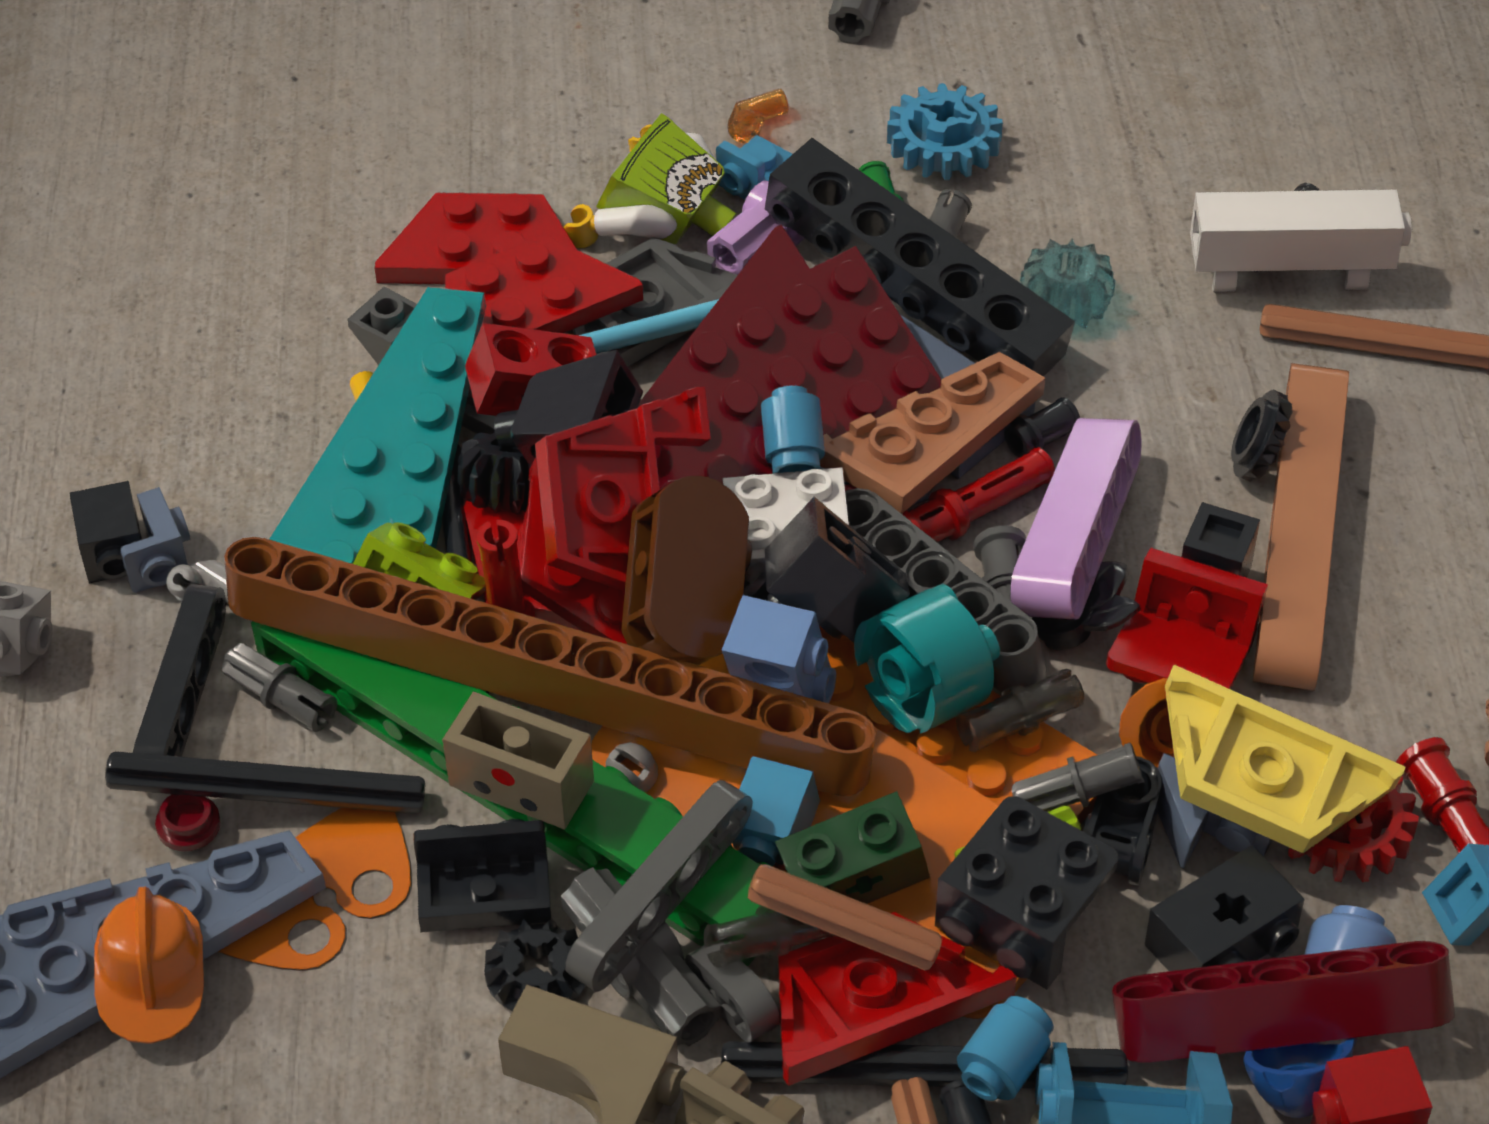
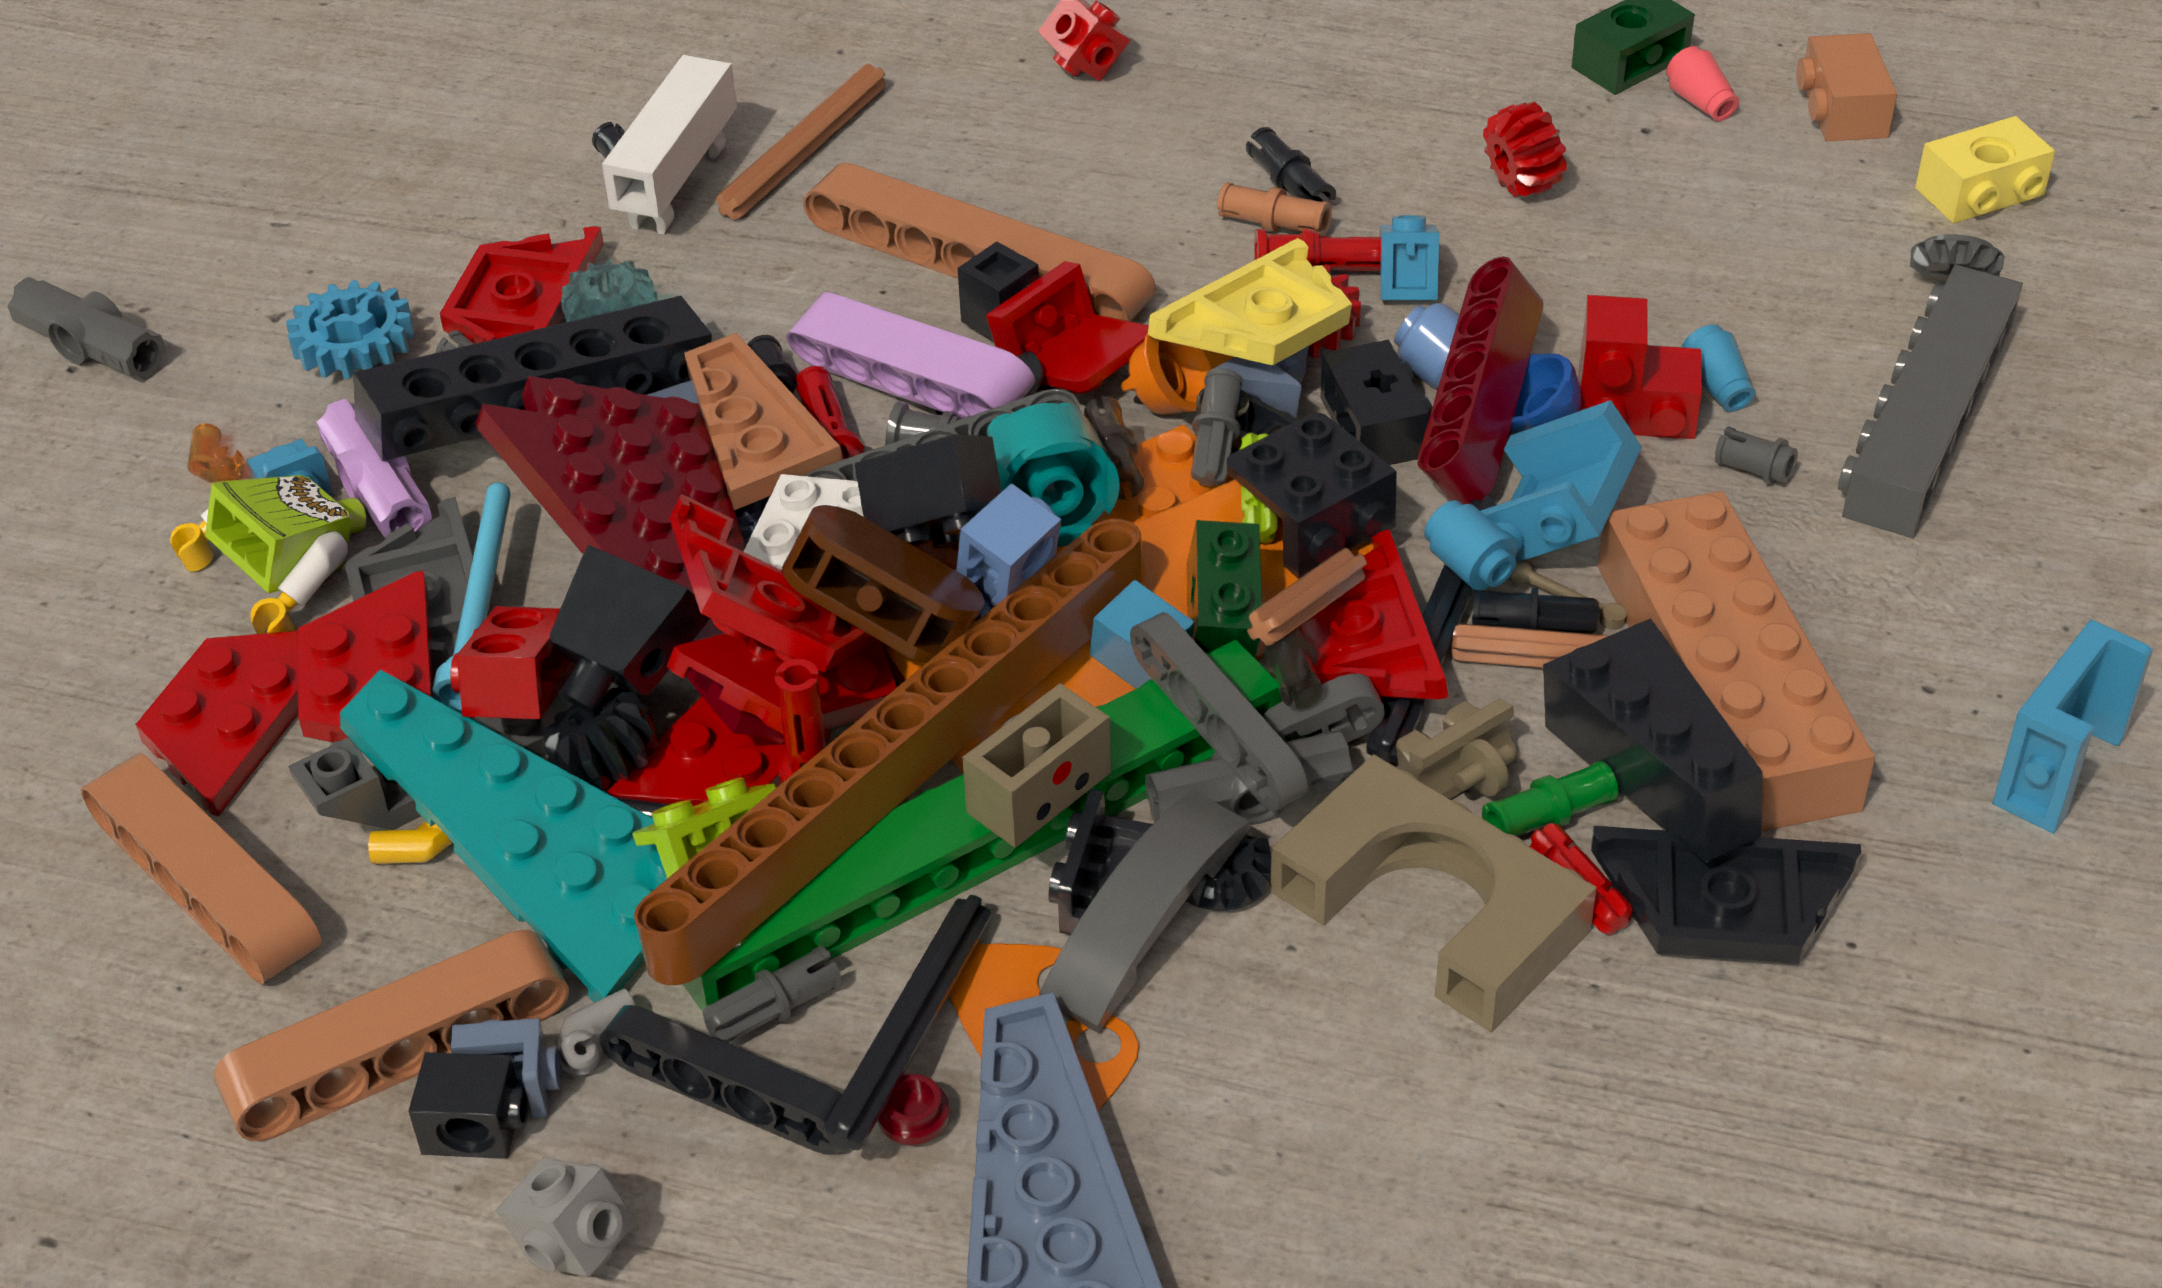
camera: 70 degrees left, 5 degrees down
(148, 968) = (1107, 1156): orange piece -> none
(159, 452) = (383, 1035): none -> nougat beam
(299, 289) = (201, 868): none -> nougat beam
(452, 904) = (1137, 905): none -> dark grey slope
(792, 430) = (727, 485): dark azure brick -> none
(1032, 208) = (516, 285): none -> red wing
(1261, 435) = (868, 250): black gear -> none

